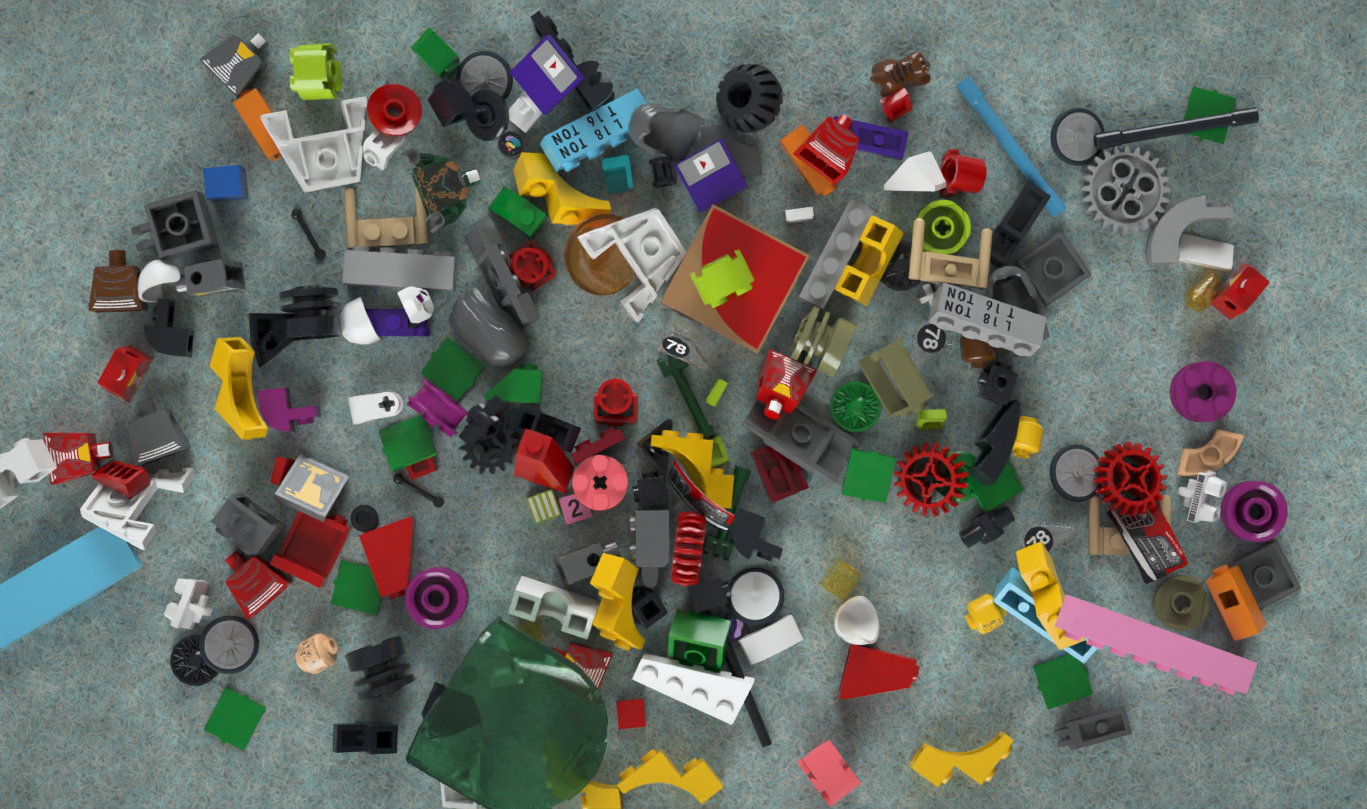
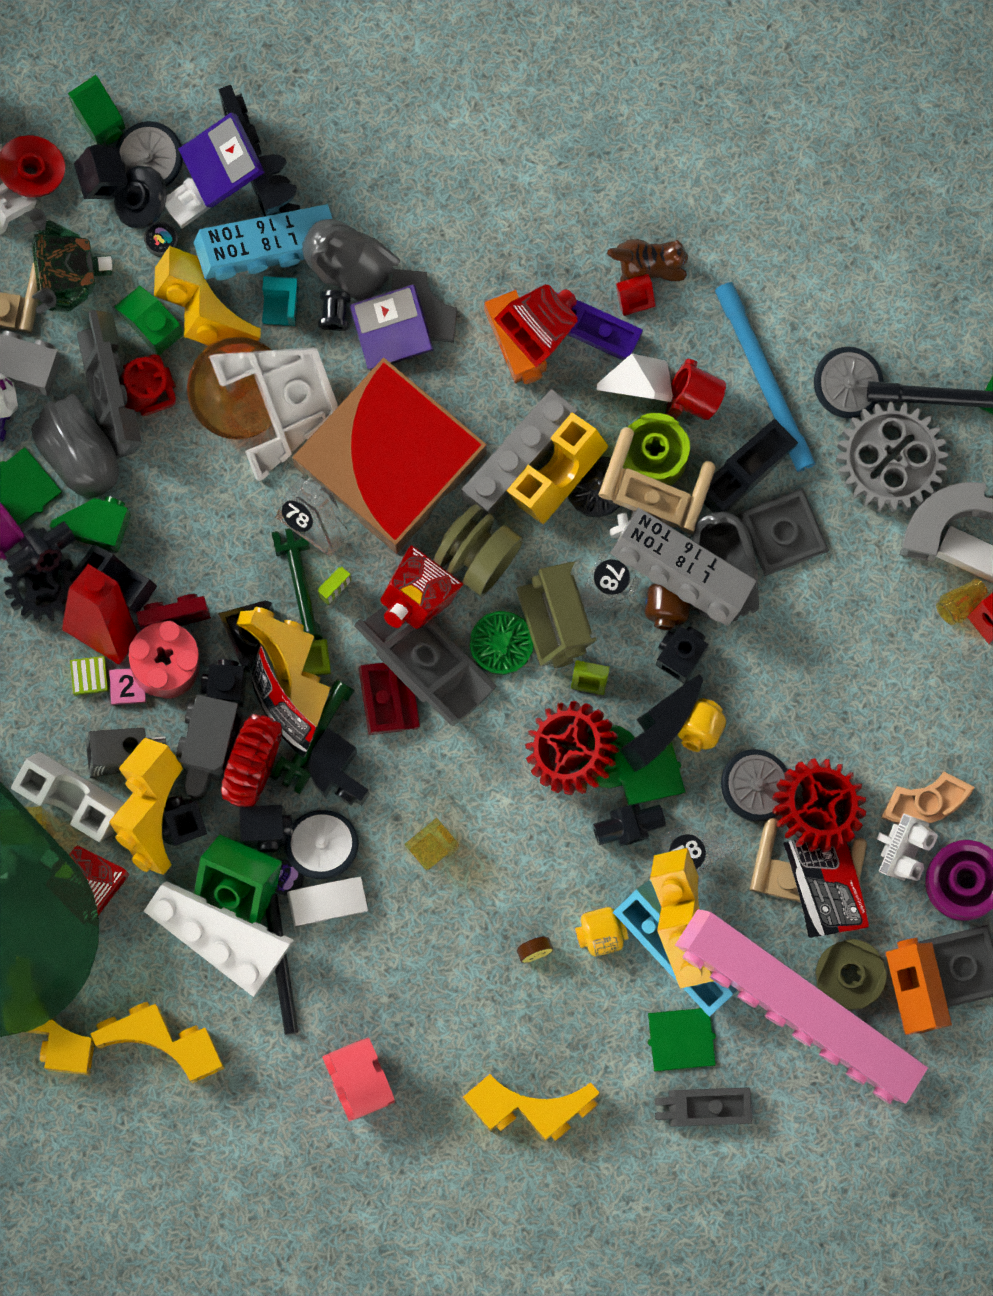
camera: 15 degrees right, 10 degrees down
(615, 399) = (210, 567): red piece -> none
(631, 713) = (131, 954): red tile -> none
(722, 279) = (371, 441): lime brick -> none
(764, 101) = (459, 247): black wheel -> none
(798, 215) = (486, 397): white tile -> none
(857, 621) = (440, 902): white helmet -> none
(868, 475) = (497, 729): green piece -> none
(875, 672) = (448, 970): red slope -> none
(937, 639) = (534, 949): none -> reddish brown tile
(1220, 389) = (944, 701): magenta wheel -> none

